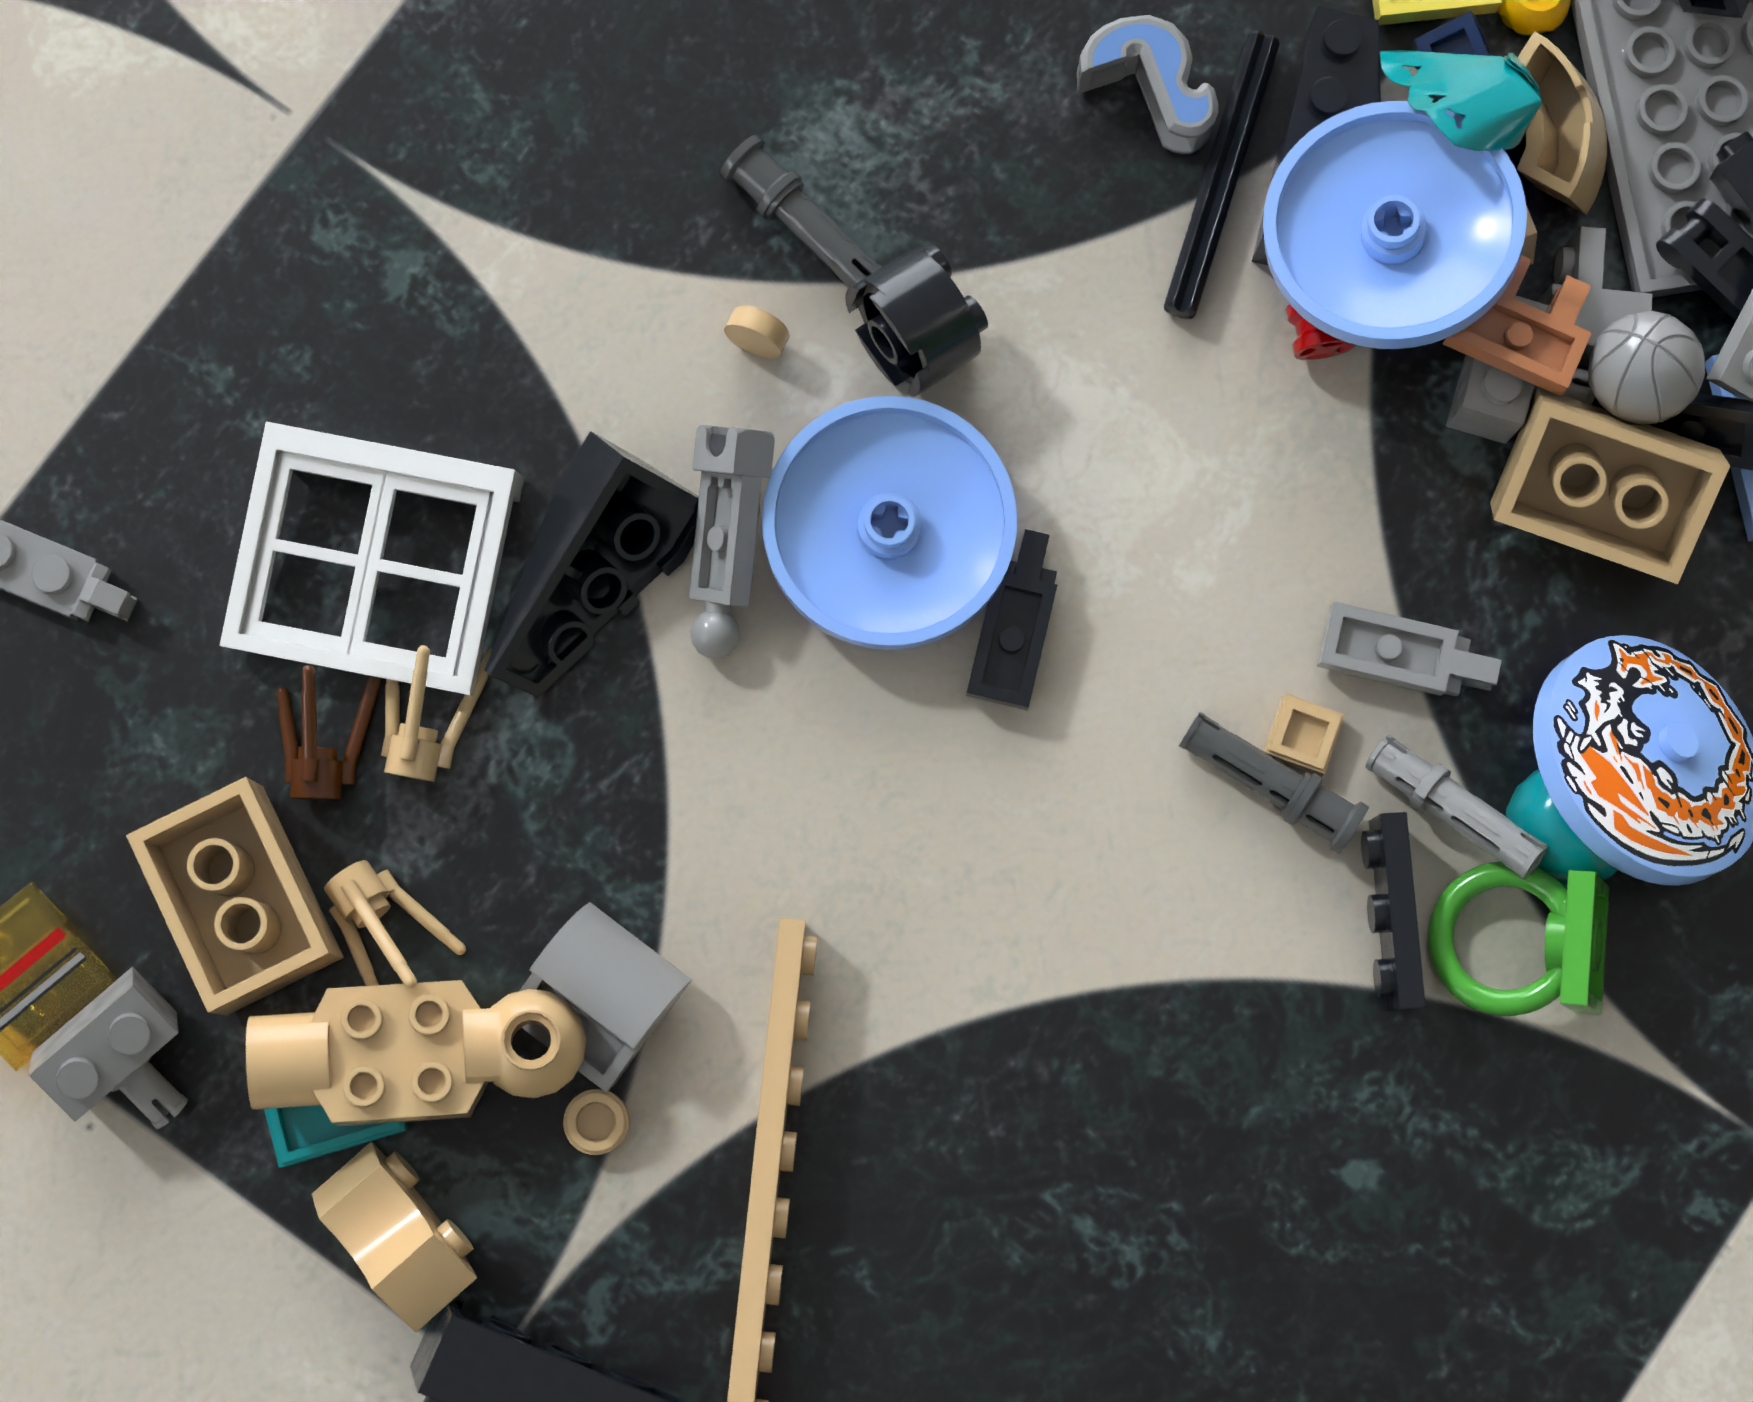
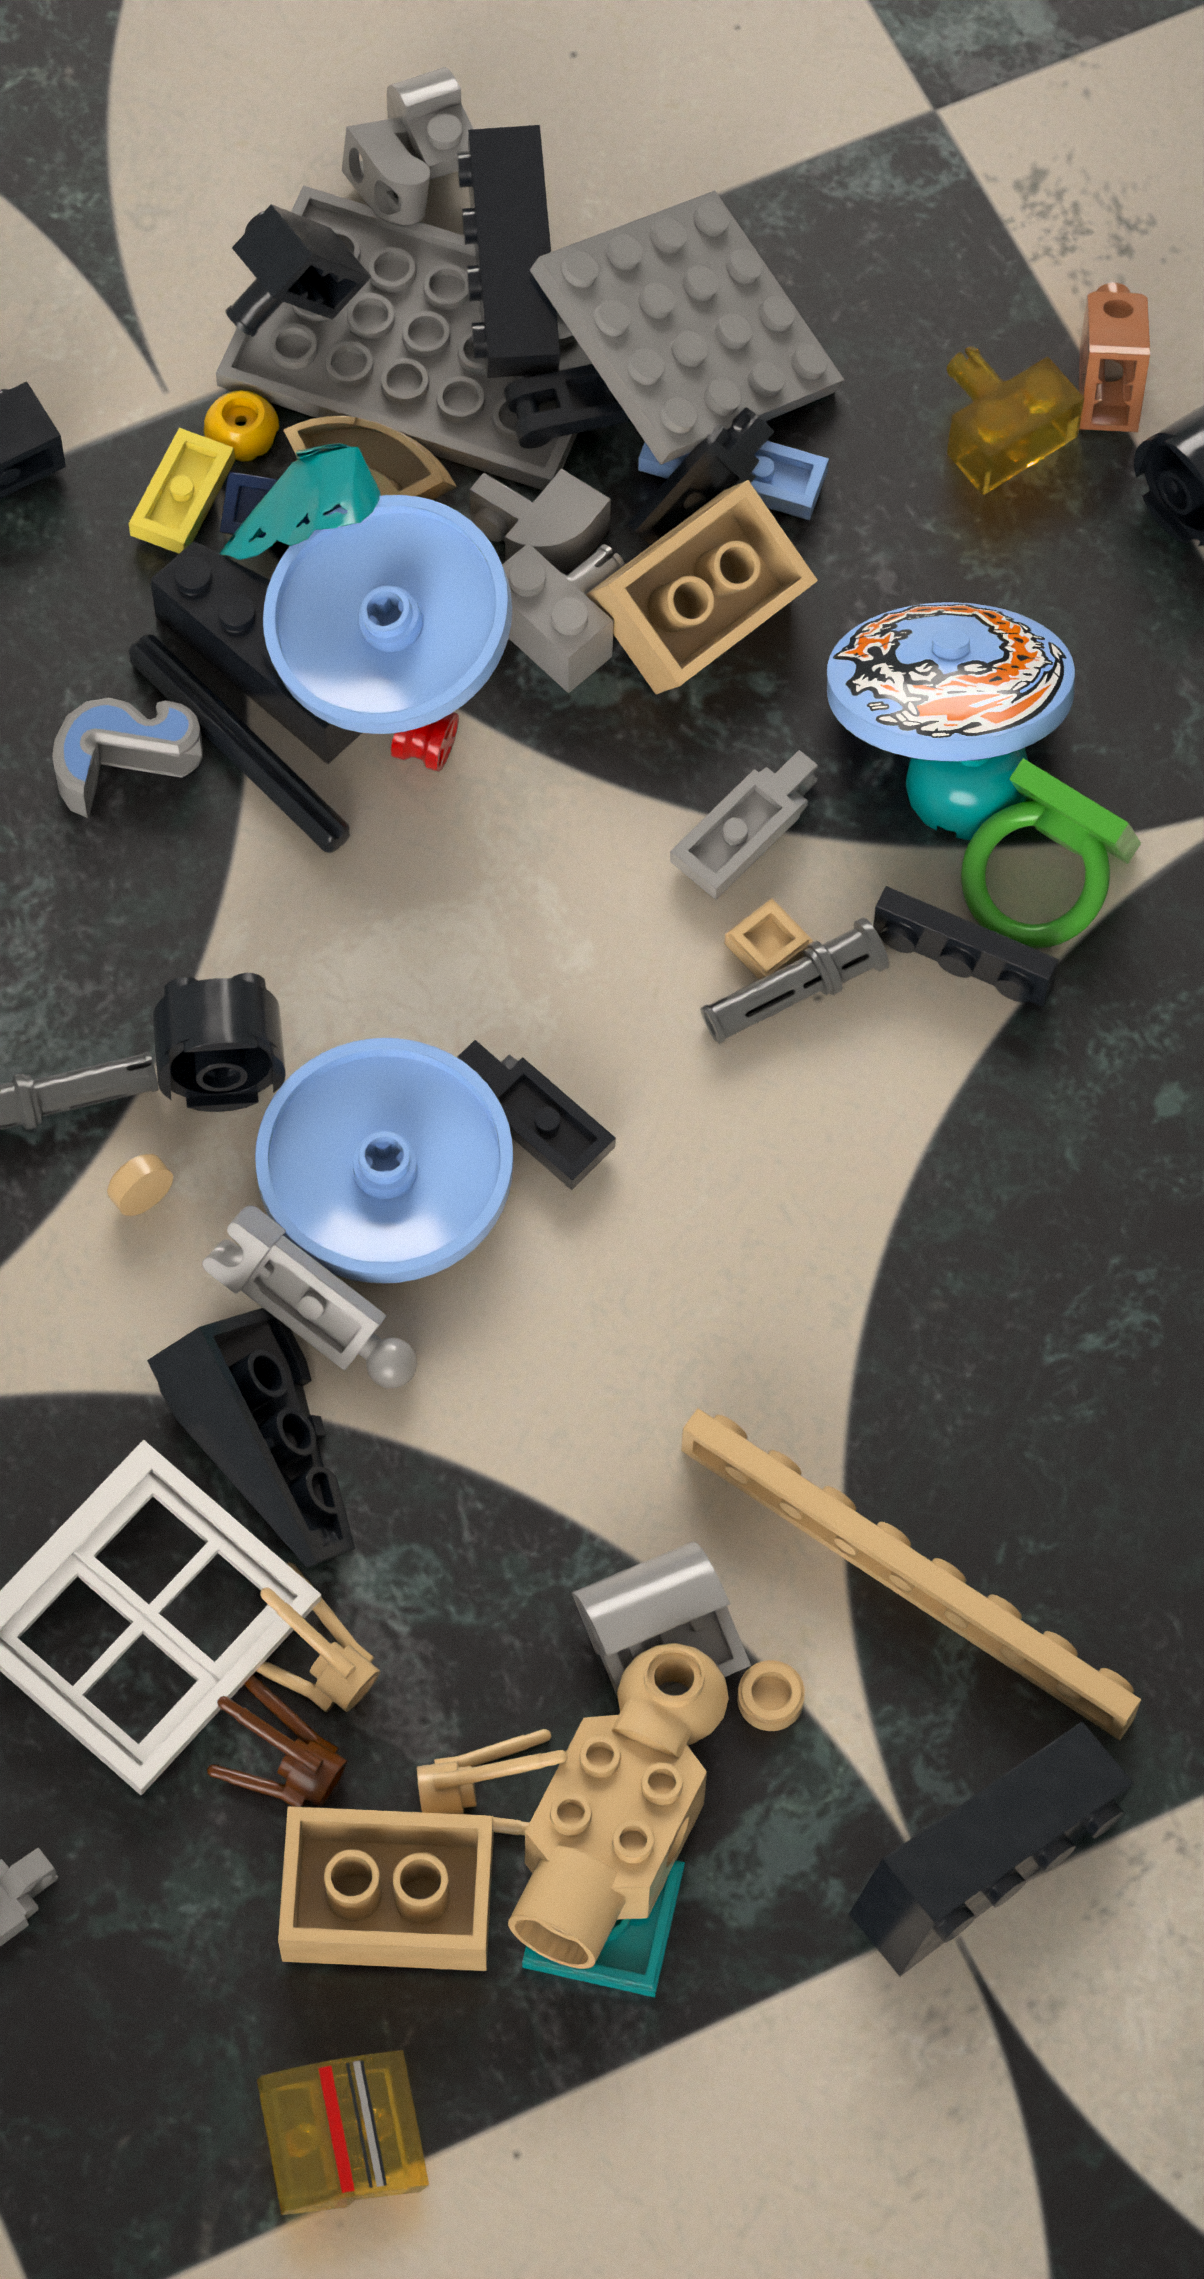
camera: 60 degrees left, 15 degrees down
(111, 1050) = (461, 2077): light grey brick -> none
(395, 1235) = (745, 1916): tan brick -> none
(1436, 792) = (901, 850): light grey pin -> none
(1526, 340) = (552, 567): nougat plate -> none
(1646, 367) = (626, 499): light grey piece -> none

